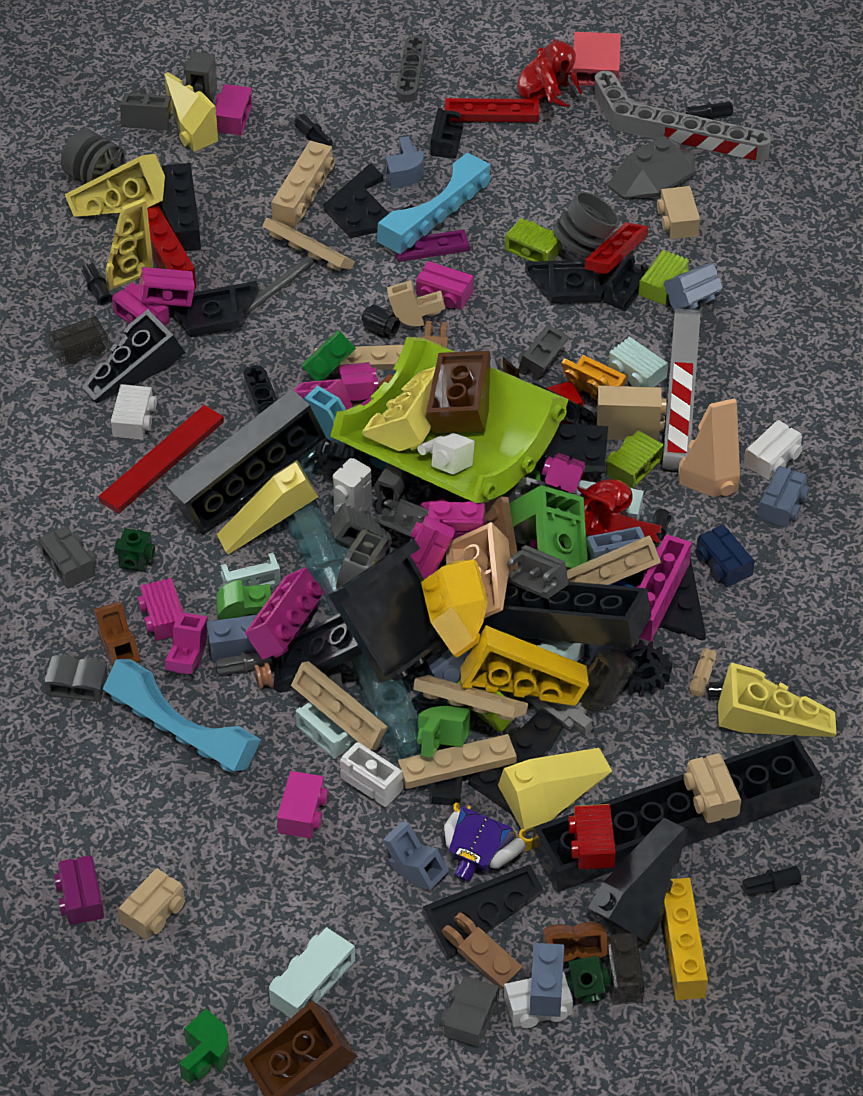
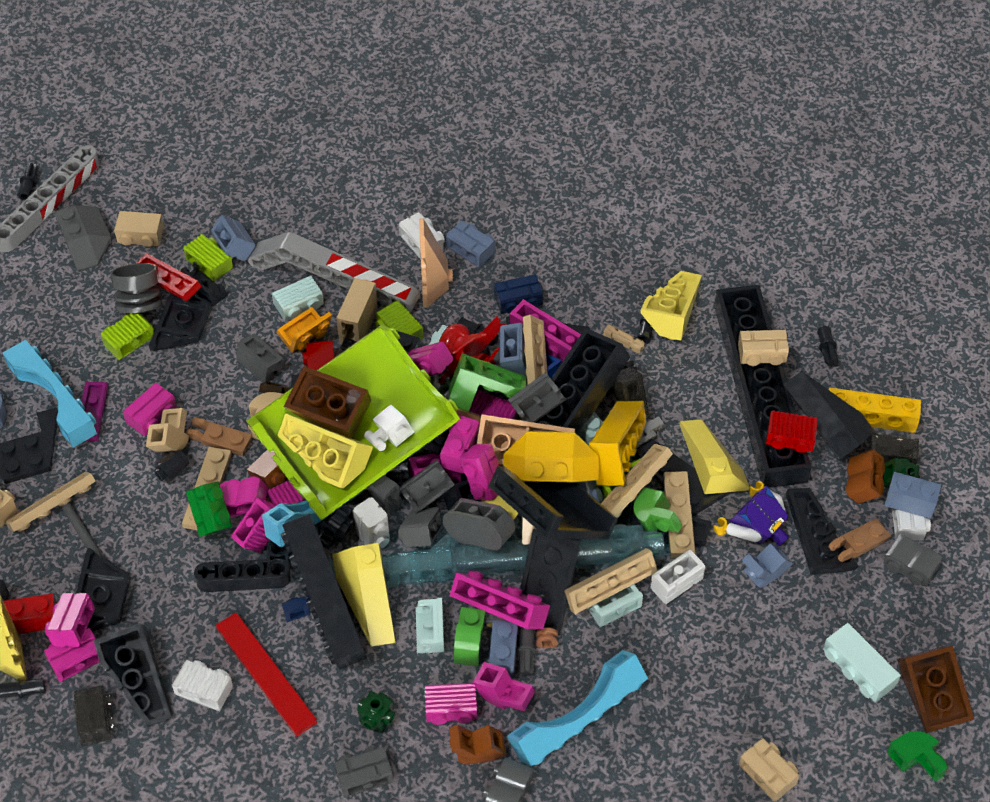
camera: 75 degrees left, 5 degrees up
(301, 805) = (691, 636): dark pink brick -> none

